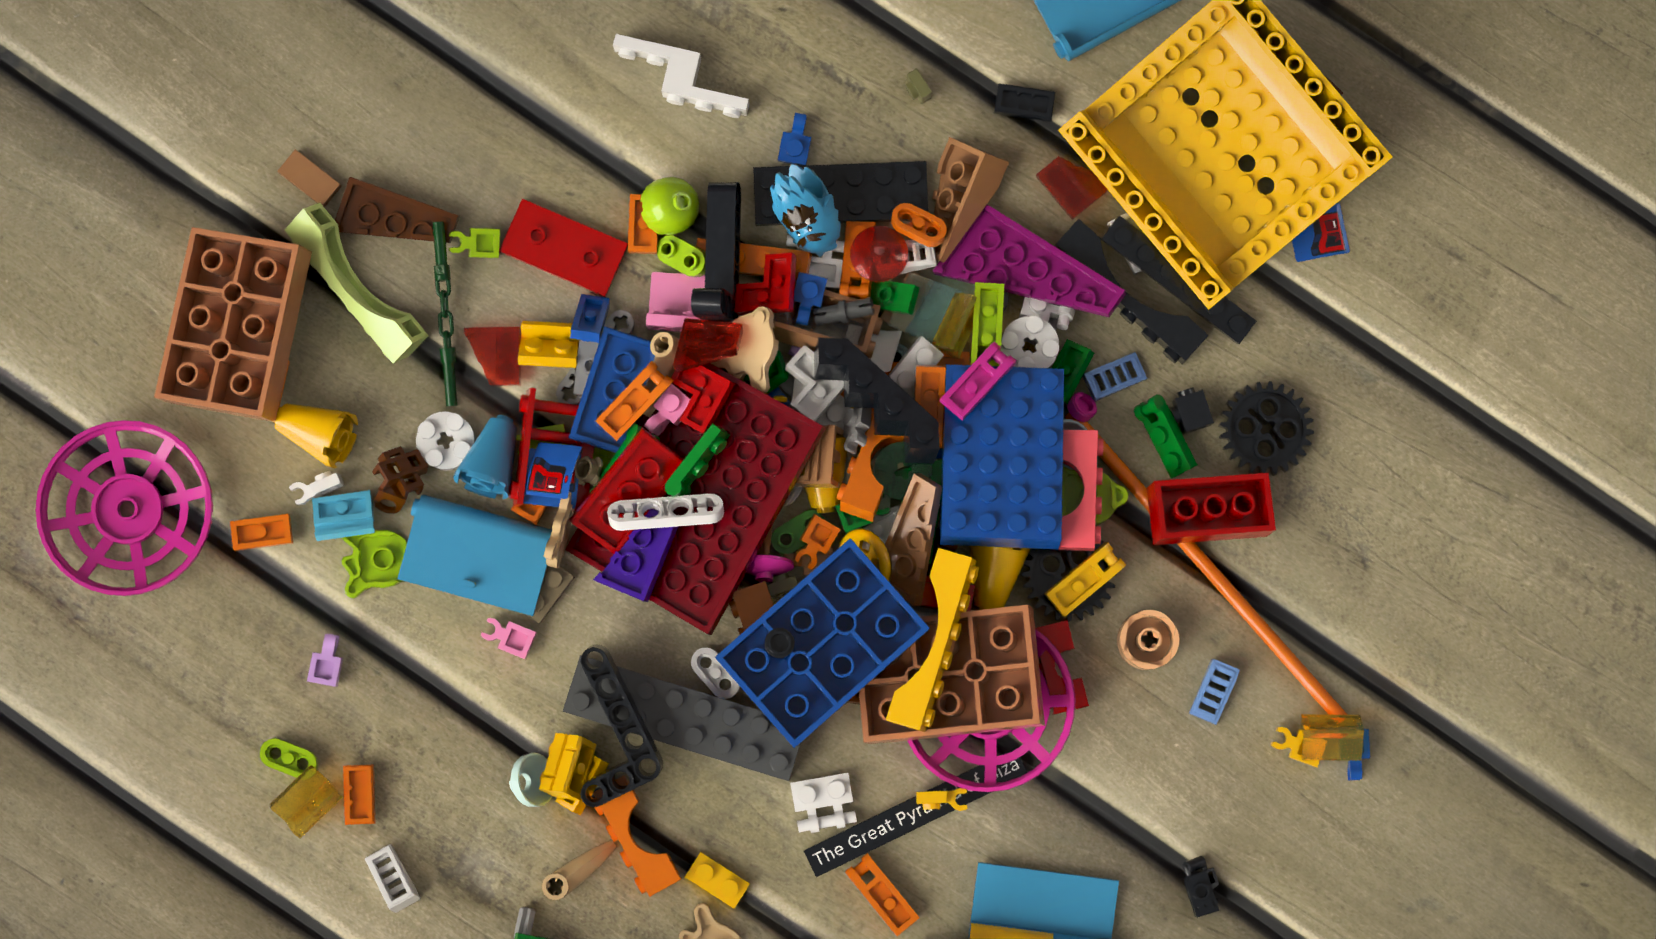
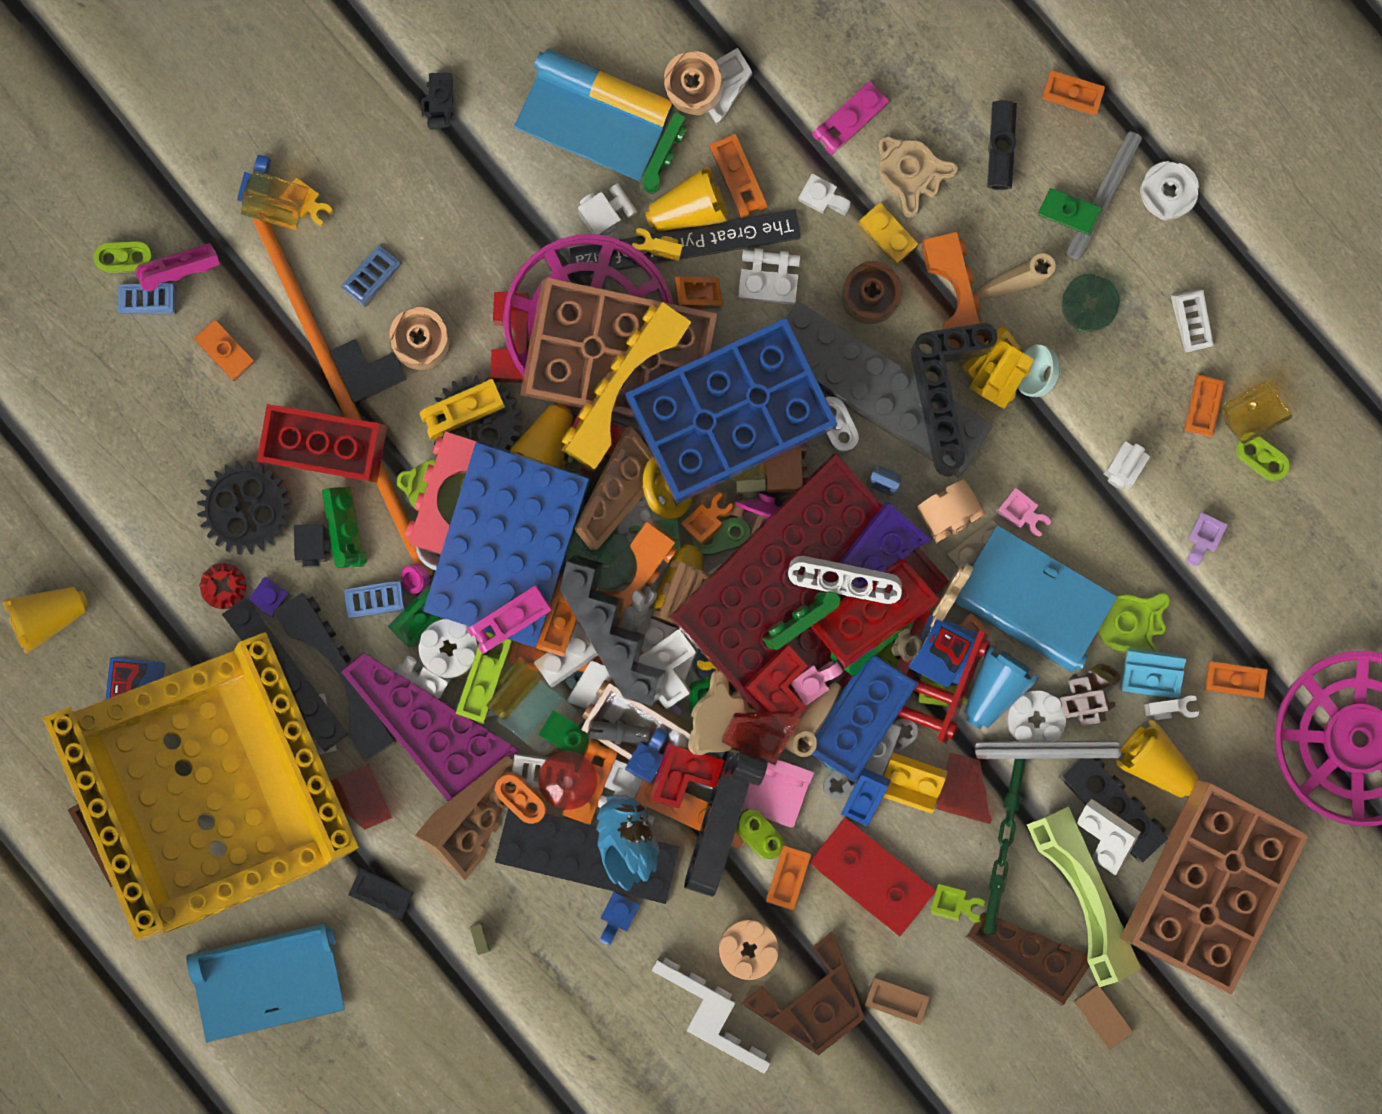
camera: 170 degrees left, 0 degrees up
(313, 348) = (1077, 778): none -> black brick
(340, 345) = (1115, 835): none -> white plate
(421, 711) = (1126, 465): none -> white brick
(426, 411) = (1047, 749): none -> light grey axle
(481, 865) = (1095, 287): none -> clear green plate
(509, 139) = (896, 1001): none -> medium nougat tile
(578, 107) = (822, 1011): none -> reddish brown wing
(581, 616) = (950, 511): none -> light nougat brick
(633, 401) = (846, 696): orange plate -> none
(654, 631) = (884, 480): none -> medium blue slope
(662, 129) = (765, 952): none -> light nougat brick
(669, 205) = (758, 886): lime cylinder -> none
(706, 825) = (886, 286): none -> reddish brown brick
(779, 643) = (772, 417): black plate -> none
(796, 899) = (820, 195): none -> white plate
(888, 764) = (698, 292): none -> orange slope
(922, 850) = (689, 204): none -> yellow cone
(962, 893) = (663, 155): none -> green plate
(1006, 816) = (602, 215): none -> white brick
(1192, 588) = (363, 378): none -> black tile
(1217, 351) = (268, 596): none -> dark purple plate
(1251, 354) = (236, 583): none -> red gear
(1334, 577) = (224, 350): none -> orange plate
(1402, 610) = (170, 300): none -> medium blue slope
(1406, 644) = (176, 266): none -> dark pink plate
(1425, 271) = (44, 614): none -> yellow cone
(1460, 640) = (123, 256): none -> lime plate

